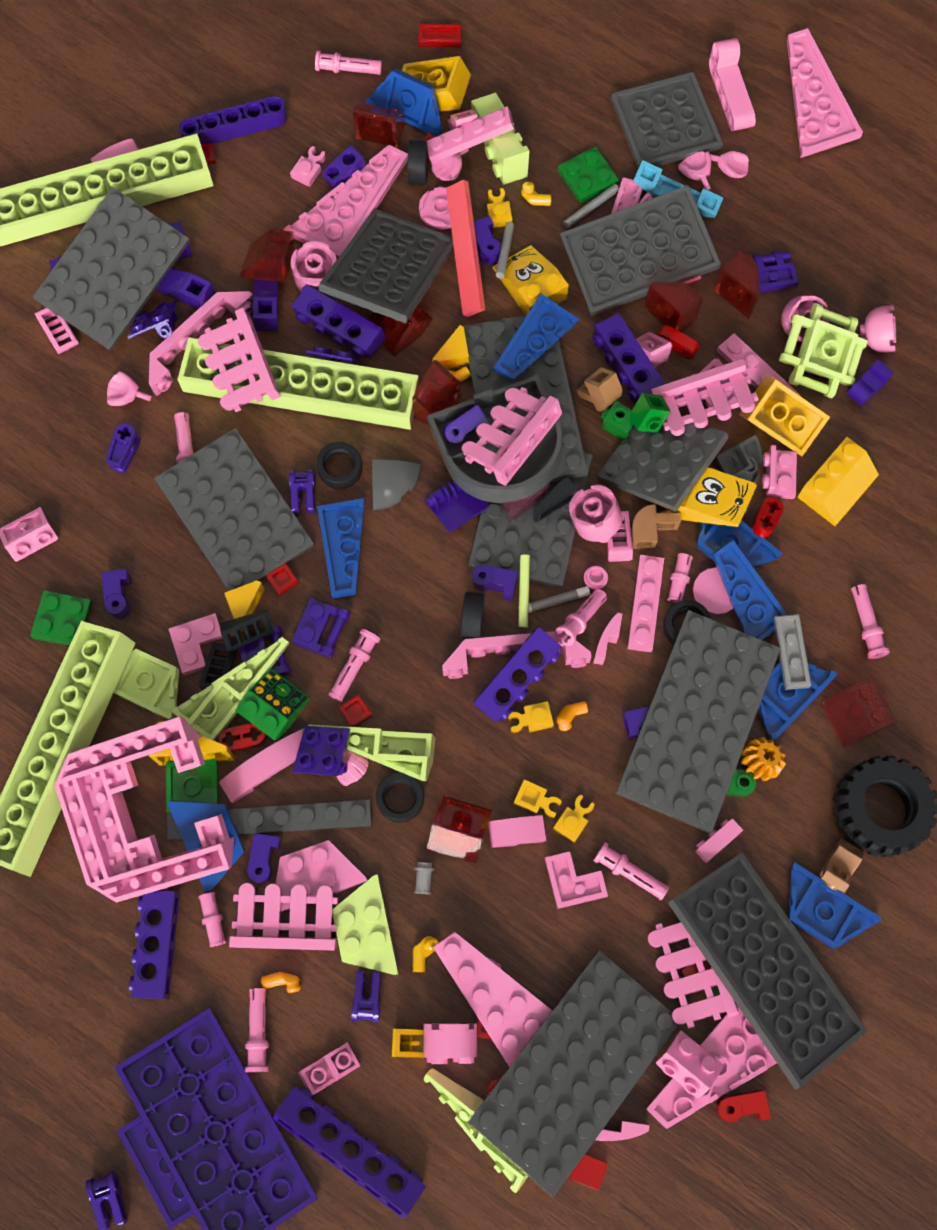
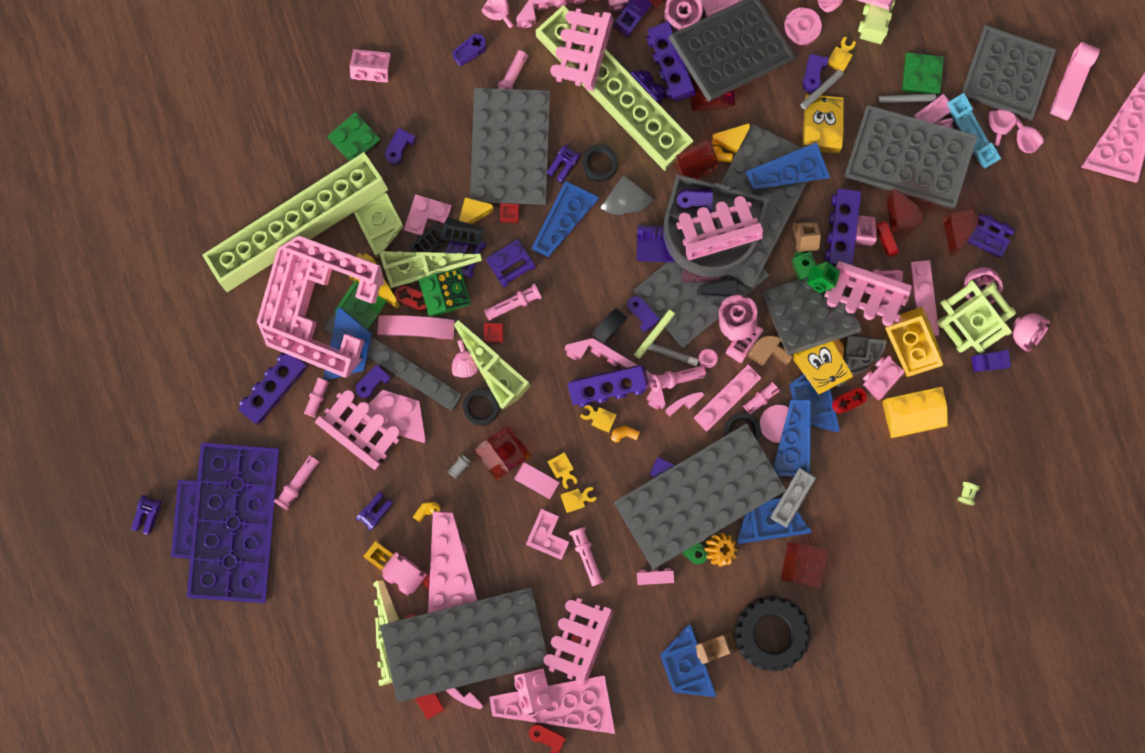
camera: 35 degrees right, 10 degrees up
(281, 978) = (331, 462): light orange arm -> none
(322, 751) = (453, 344): dark purple hinge -> none
(329, 1069) = (323, 536): bright pink slope -> none
(354, 1167) = (298, 601): dark purple brick -> none
(364, 929) = (402, 470): yellowish green wing -> none
(465, 248) = (794, 70): coral tile -> none
(533, 197) = (871, 63): yellow arm -> none
(768, 970) = (622, 672): dark grey plate -> none
(872, 632) = (855, 523): bright pink pin -> none

